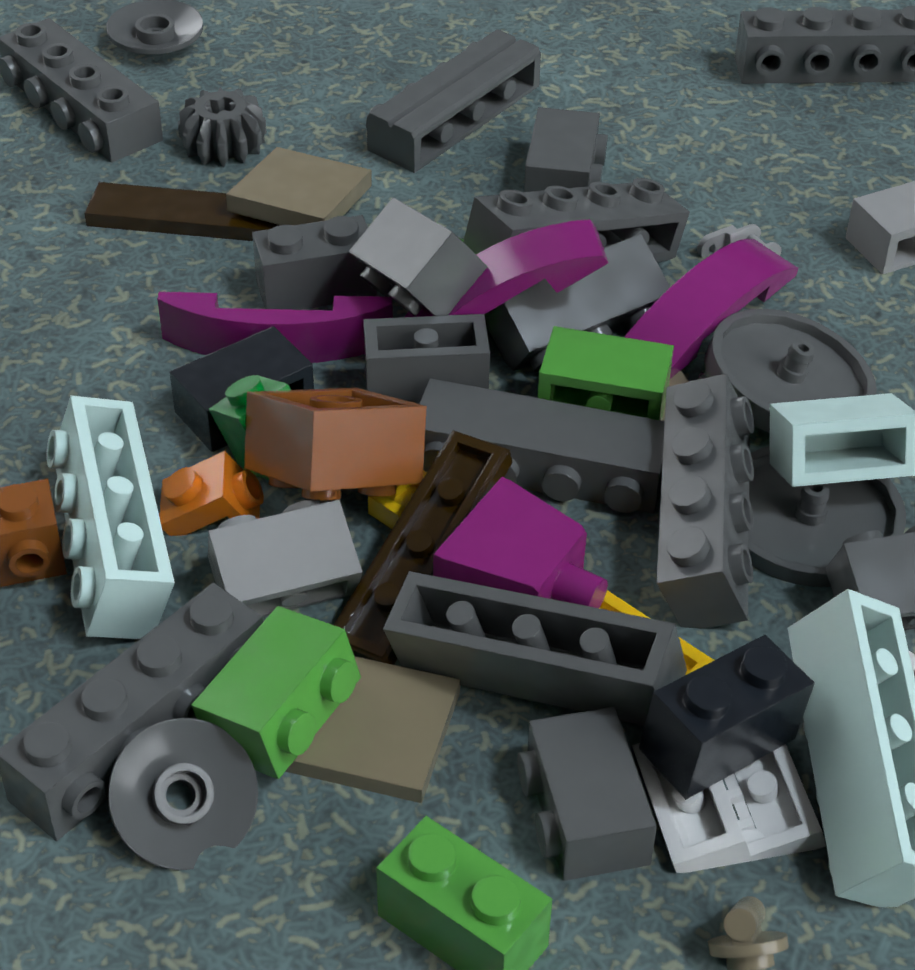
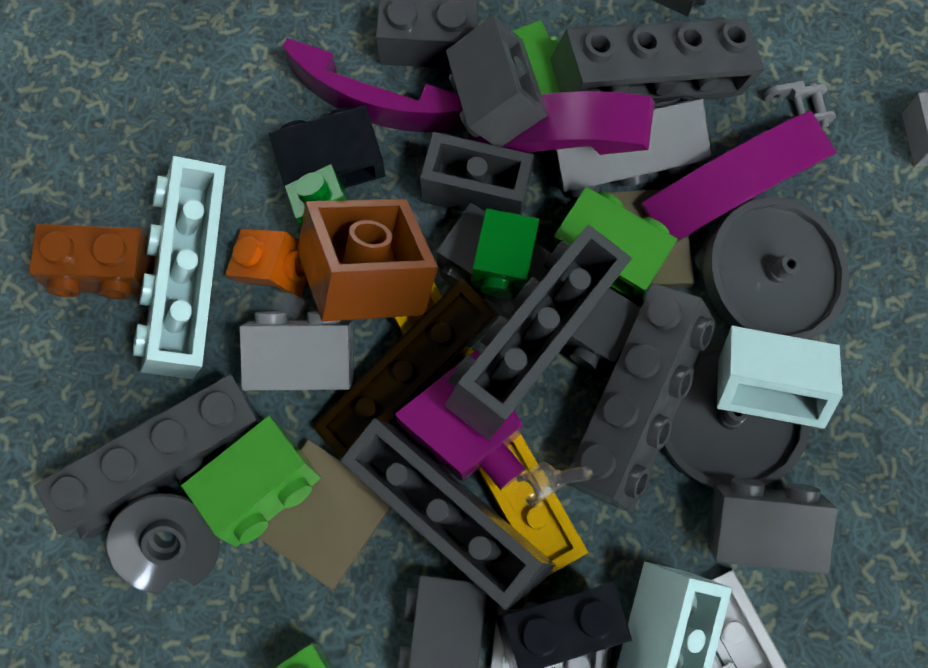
camera: 20 degrees right, 30 degrees up
(494, 392) = (504, 253): none -> green brick
(561, 431) = (528, 342): none -> dark grey brick
(640, 590) = (547, 480): none -> clear hand

